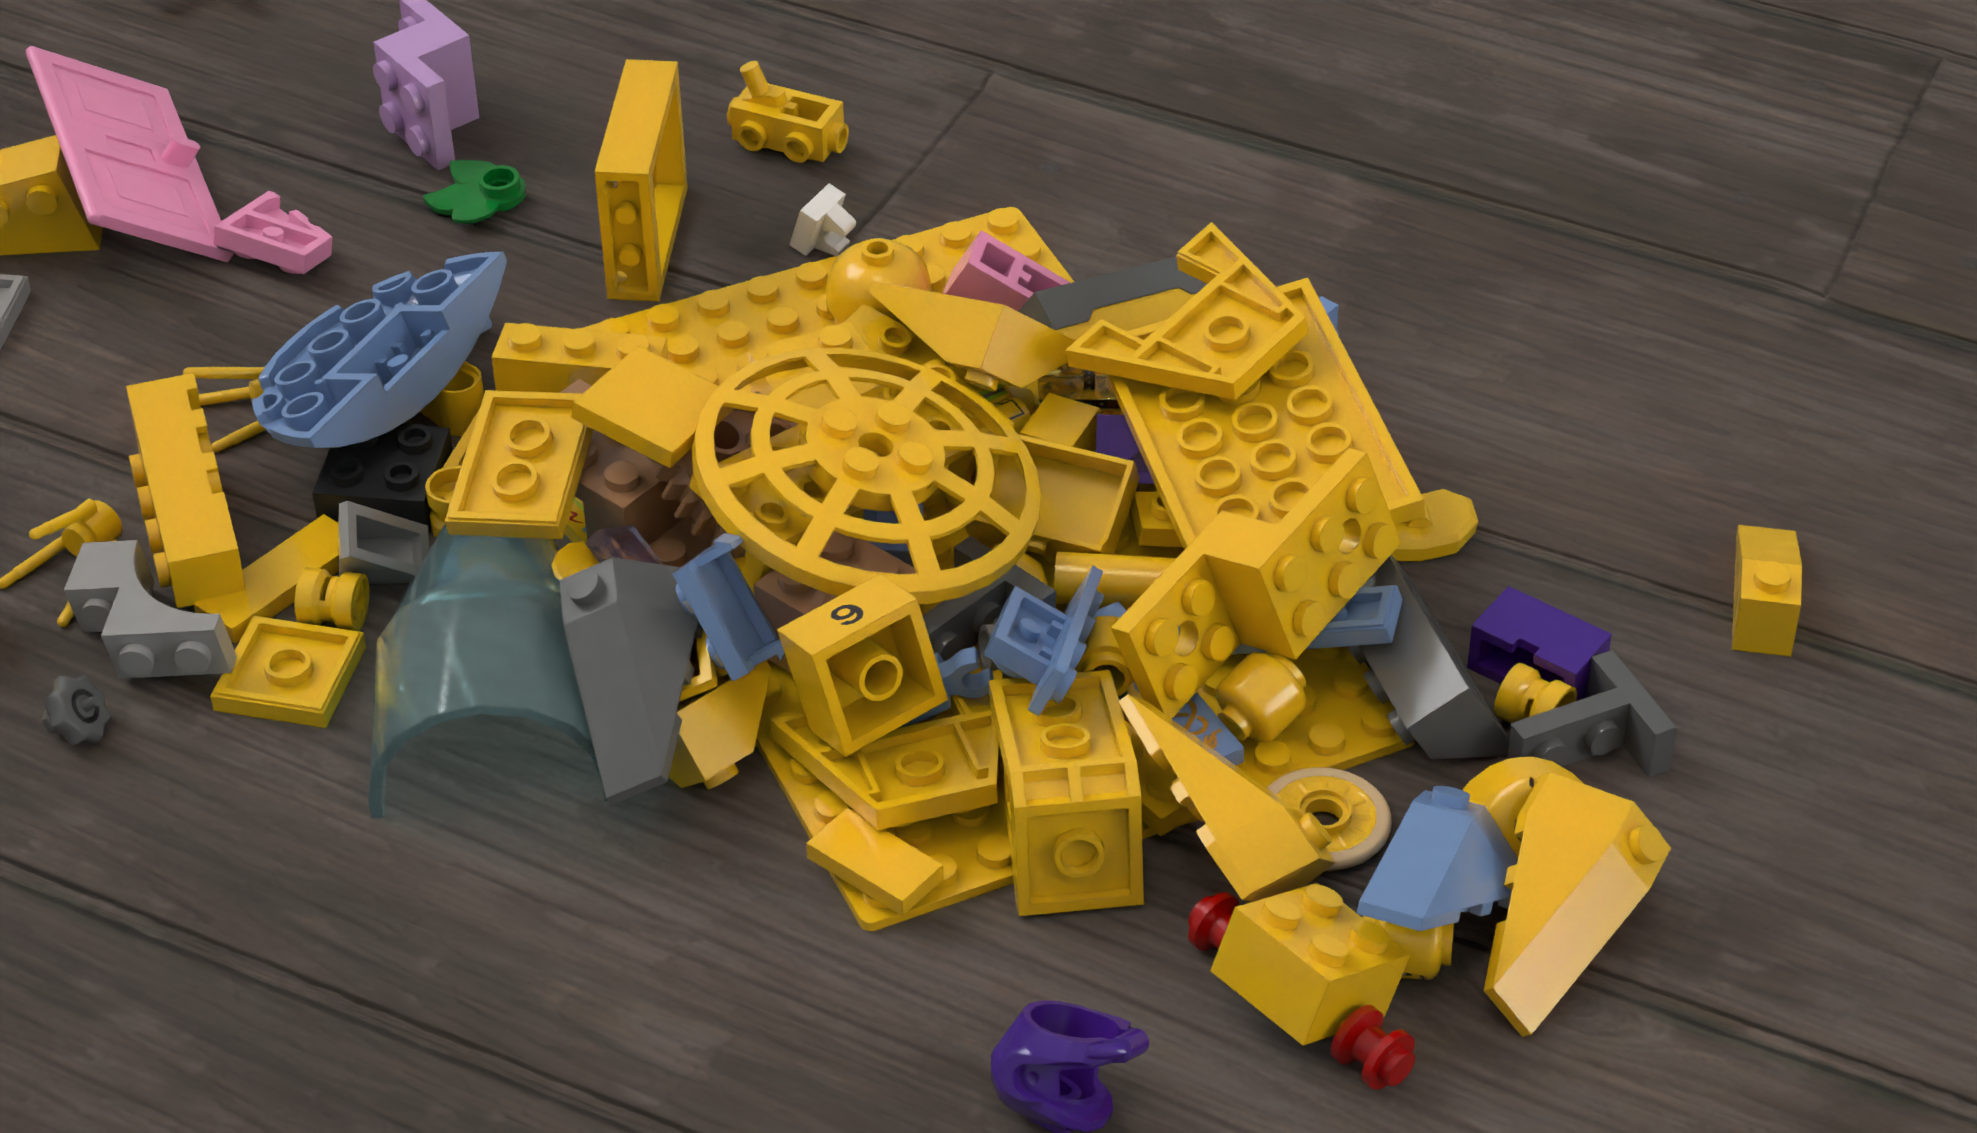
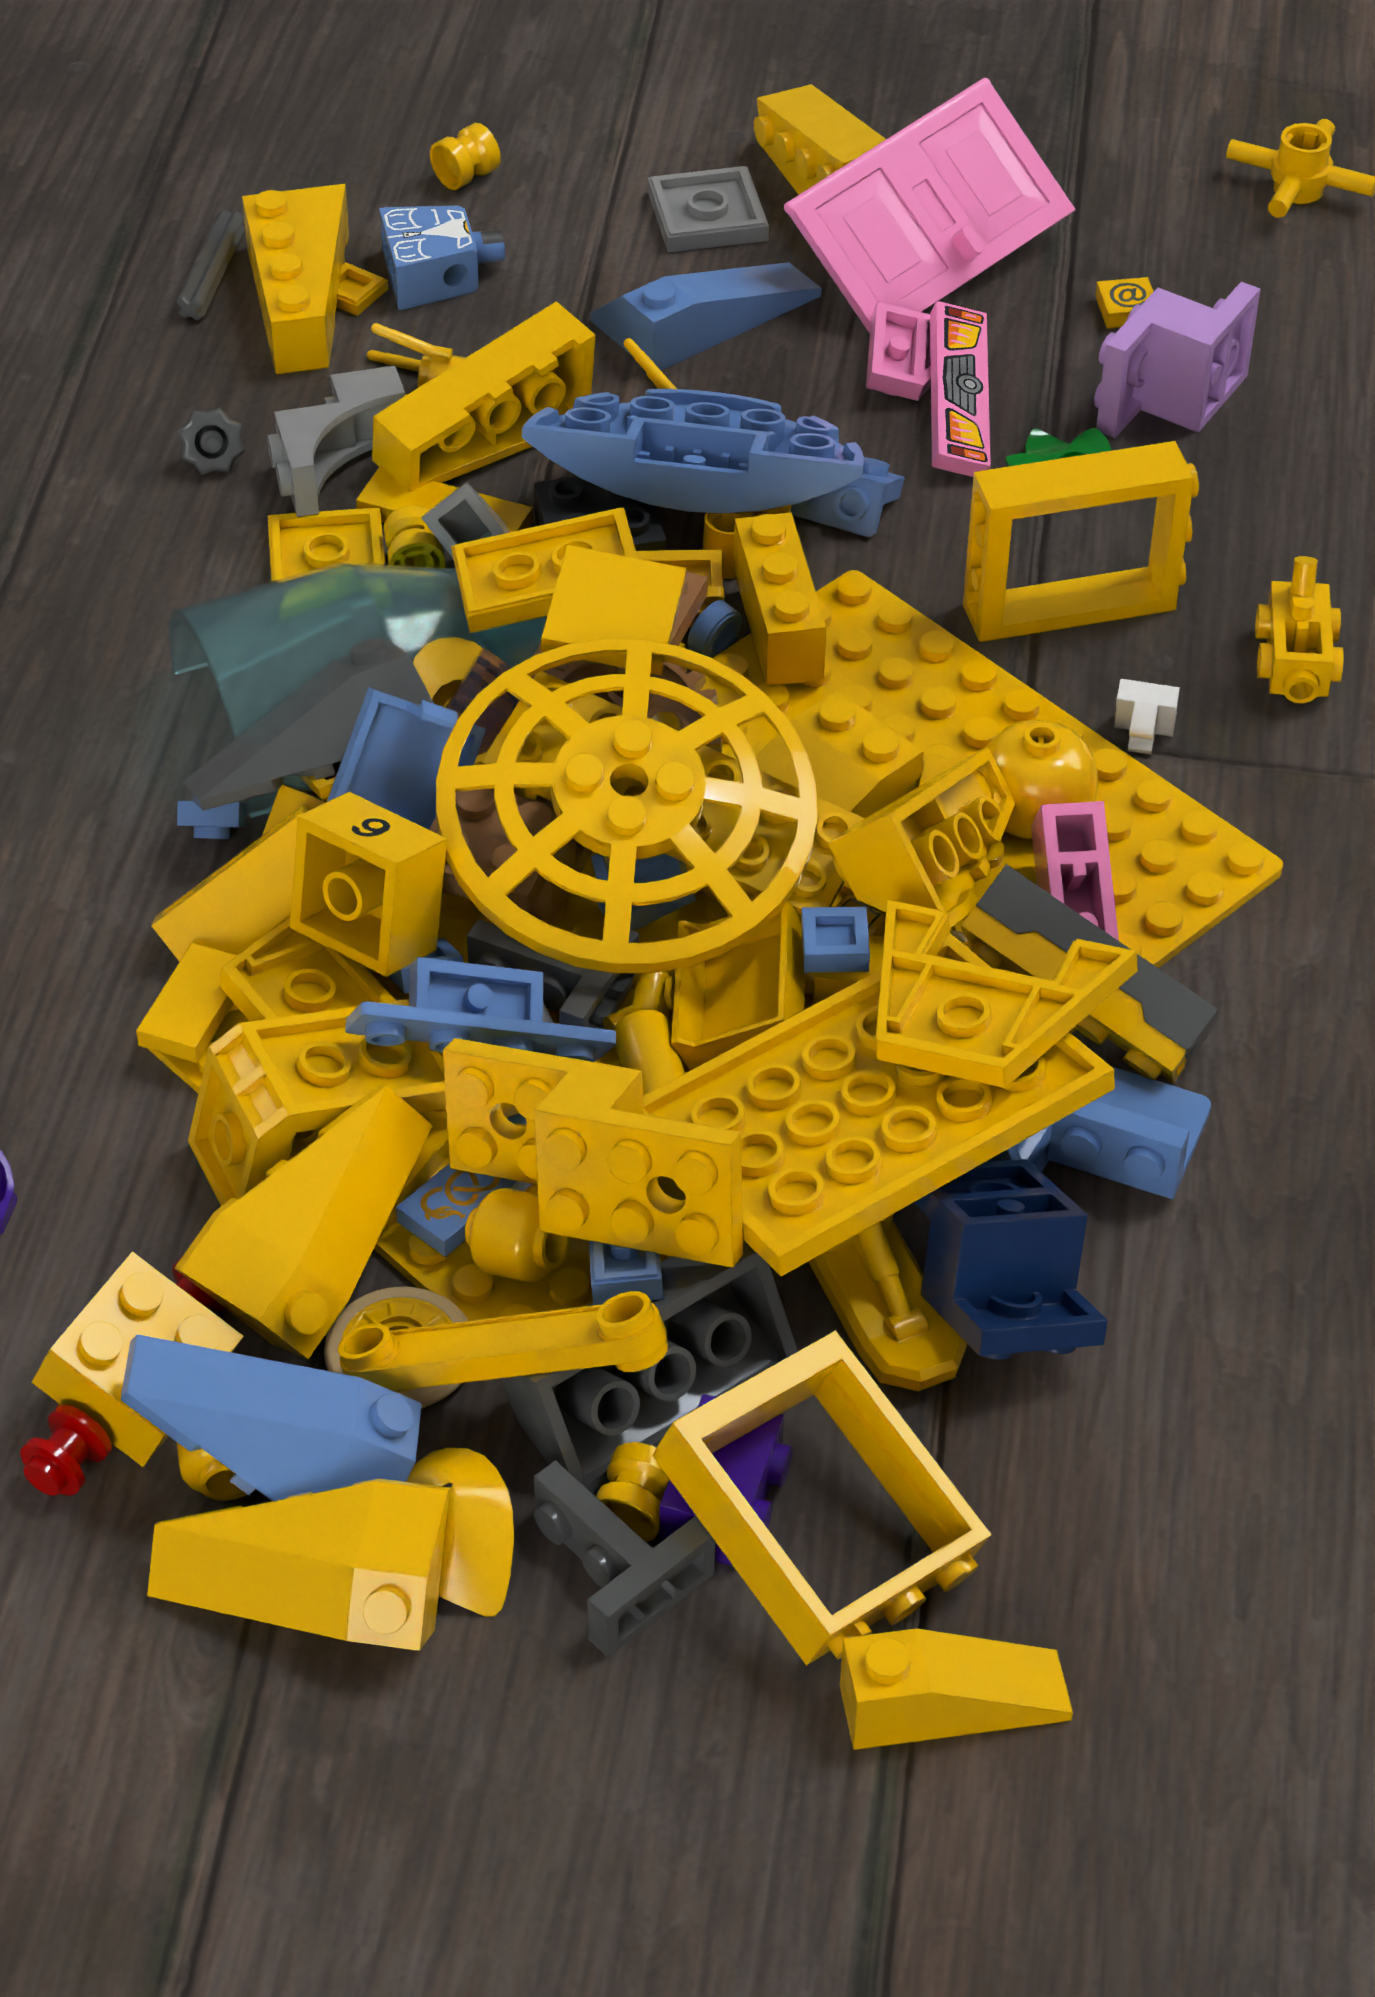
camera: 70 degrees right, 5 degrees up
(104, 352) = (702, 309): none -> medium blue wedge
(294, 104) = (1119, 297): none -> yellow tile
(354, 217) = (959, 389): none -> tile
(623, 818) = (213, 822): none -> medium blue plate
(763, 785) = (238, 899): none -> yellow panel
(1054, 414) = (835, 939): none -> medium blue plate
(1412, 710) = (618, 1333): none -> yellow piece
(1432, 443) = (1008, 1262): none -> dark blue bracket
(1514, 559) = (884, 1444): none -> yellow window

